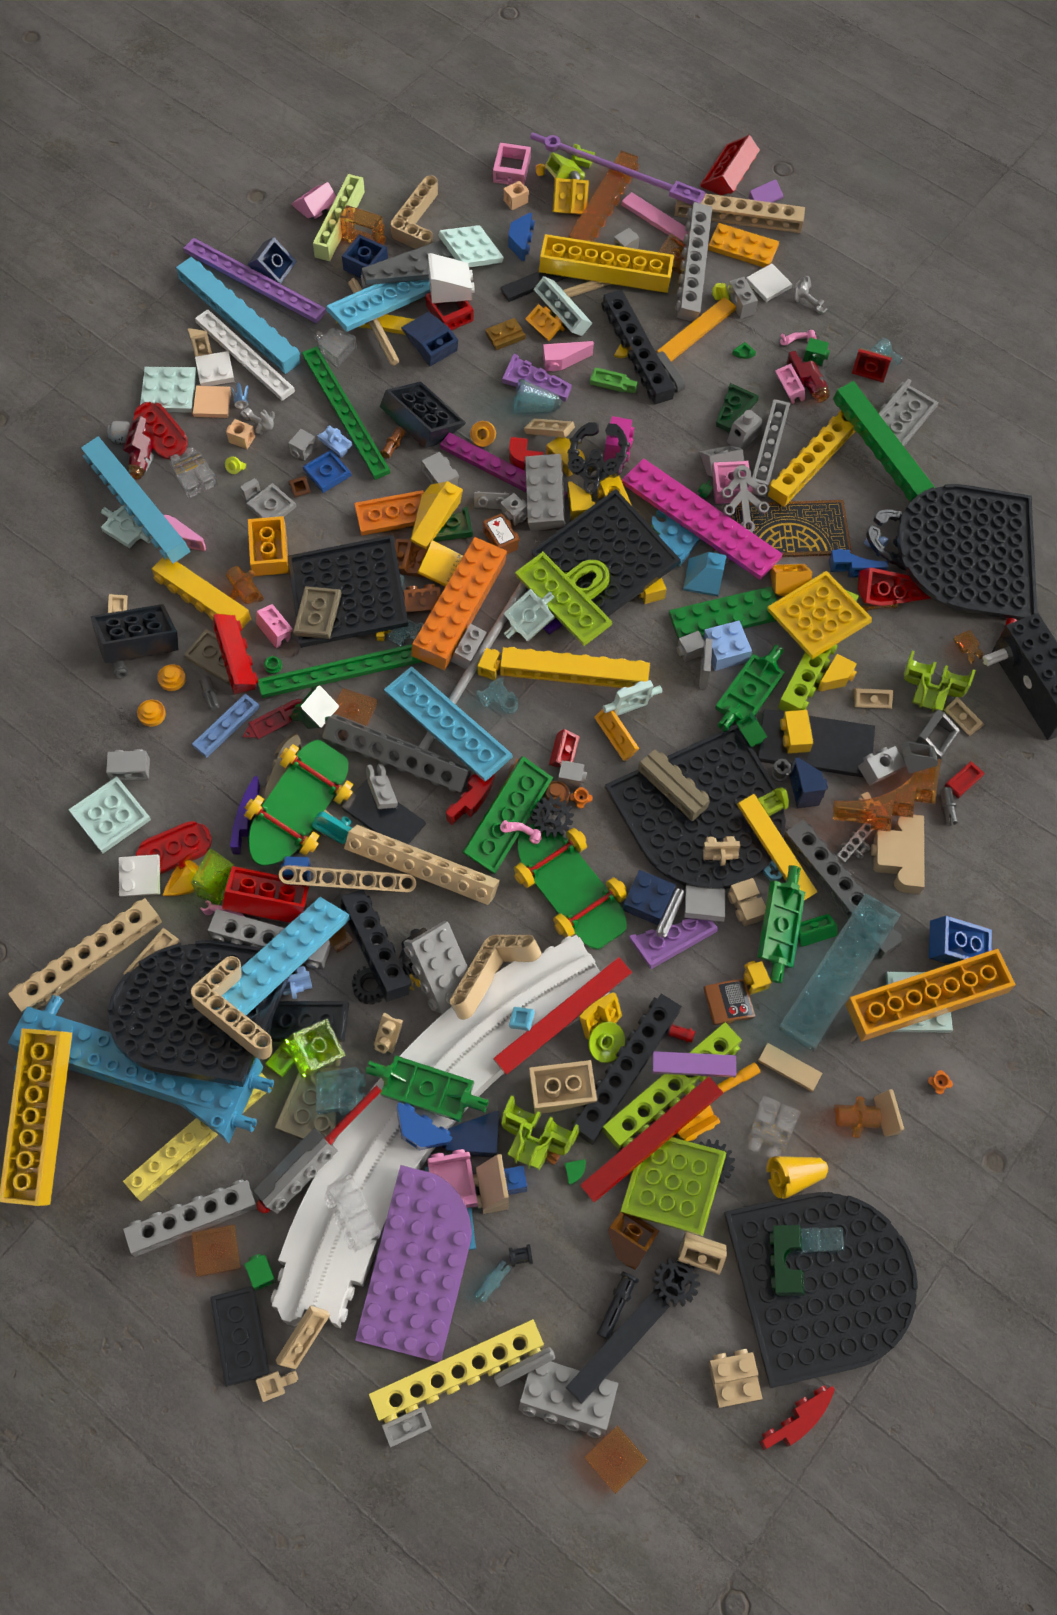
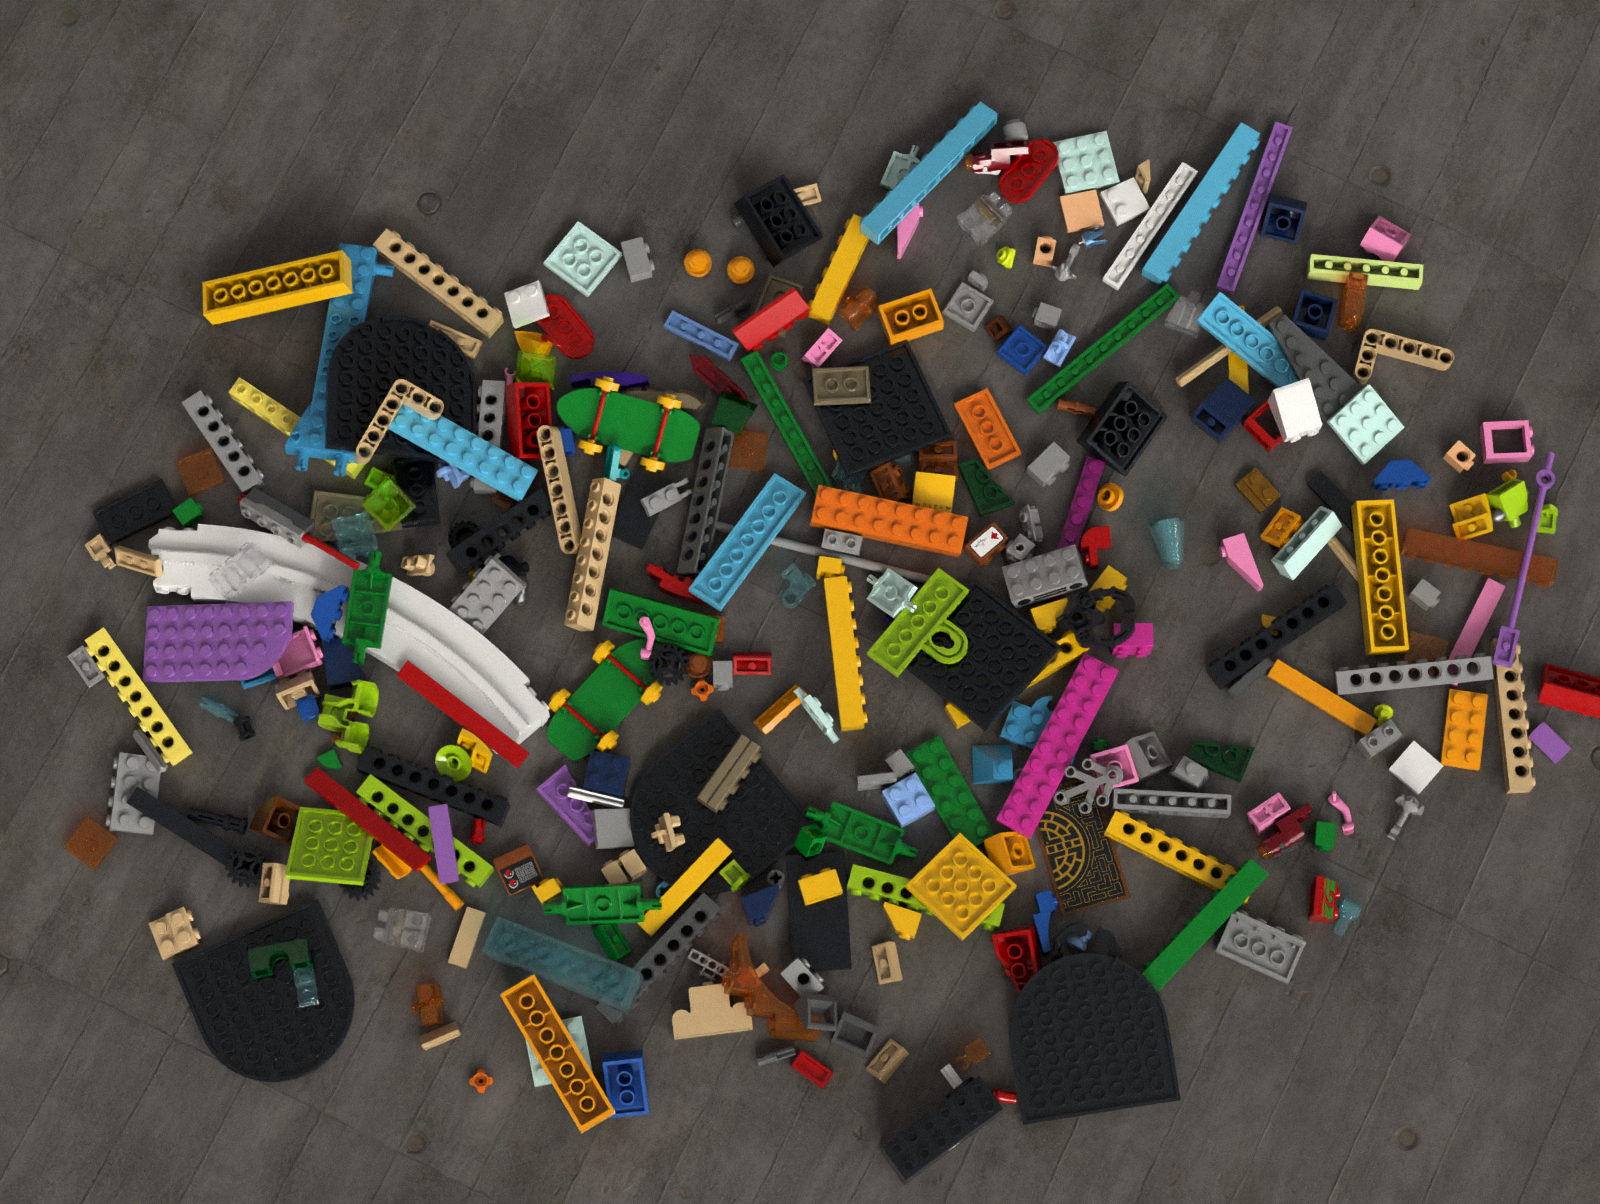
camera: 80 degrees right, 10 degrees up
(434, 510) = (996, 470): yellow wedge -> none
(486, 963) = (494, 633): tan beam -> none
(521, 1018) = (449, 677): medium azure tile -> none
(522, 369) = (1202, 529): medium lavender wing -> none
(549, 427) = (1132, 563): tan plate -> none
(562, 1086) = (399, 729): tan slope -> none
(612, 380) = (1221, 618): bright green hinge -> none
(744, 351) = (1306, 756): green tile -> none
(794, 1174) = (363, 956): yellow cone -> none
(806, 1414) = (154, 997): red slope -> none
(932, 695) = (924, 1003): lime piece -> none

